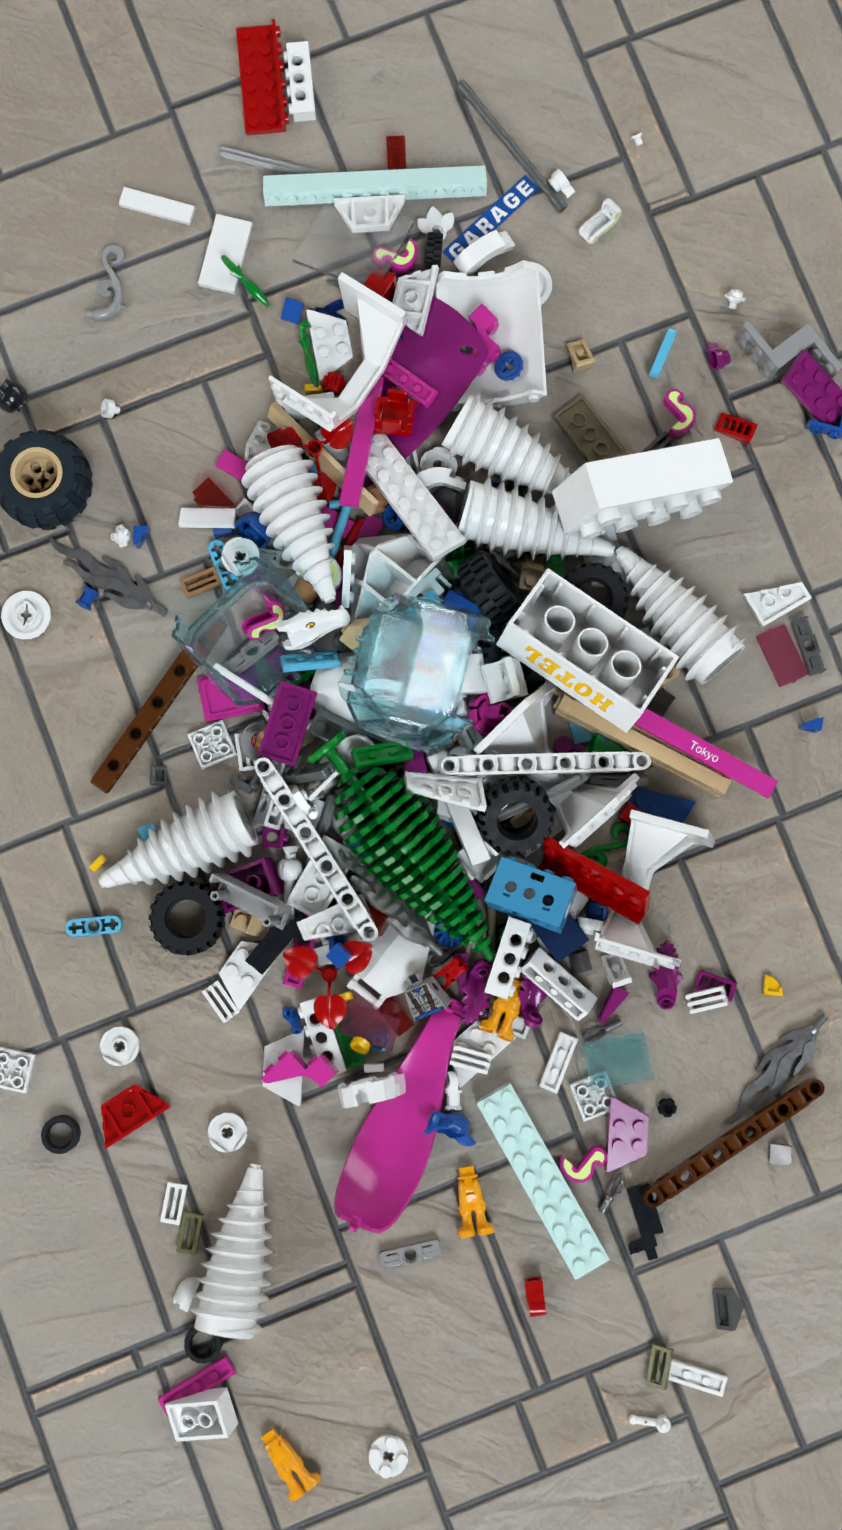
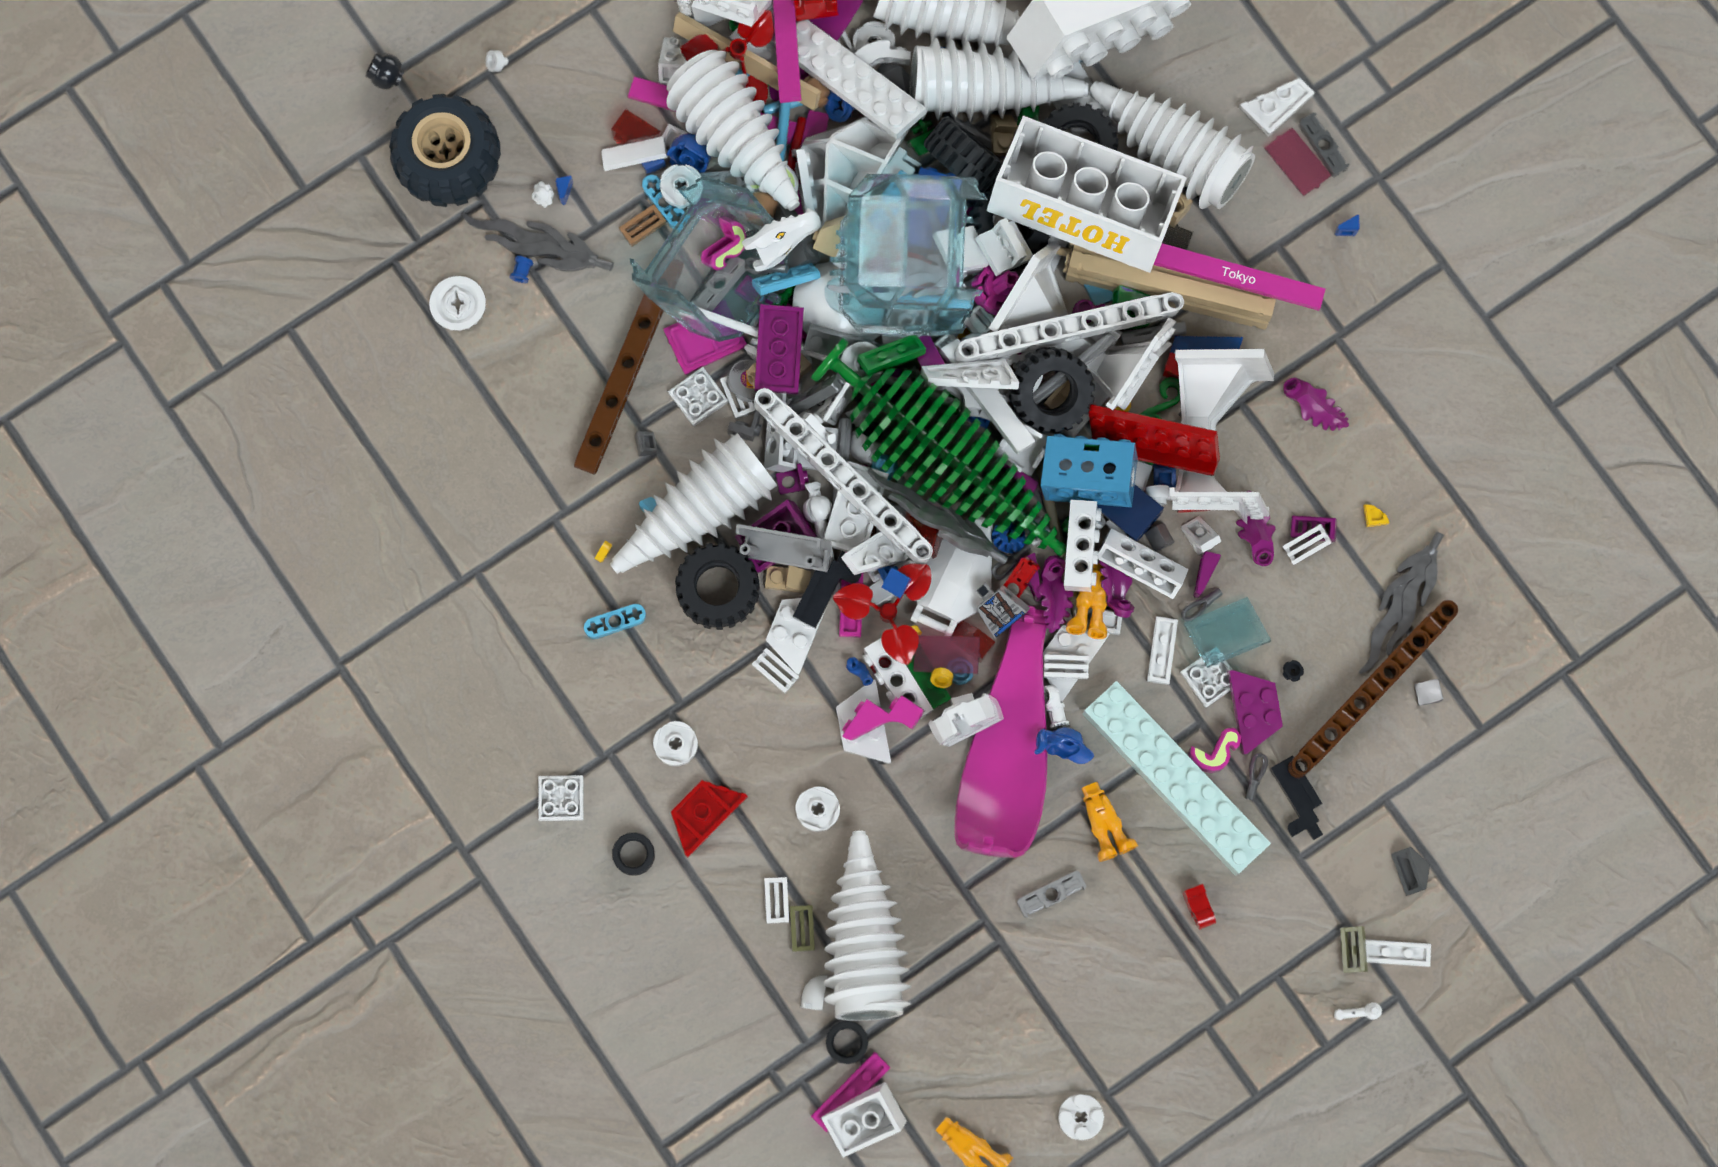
camera: 15 degrees left, 5 degrees down
(743, 876) = (1315, 405): none -> magenta plant

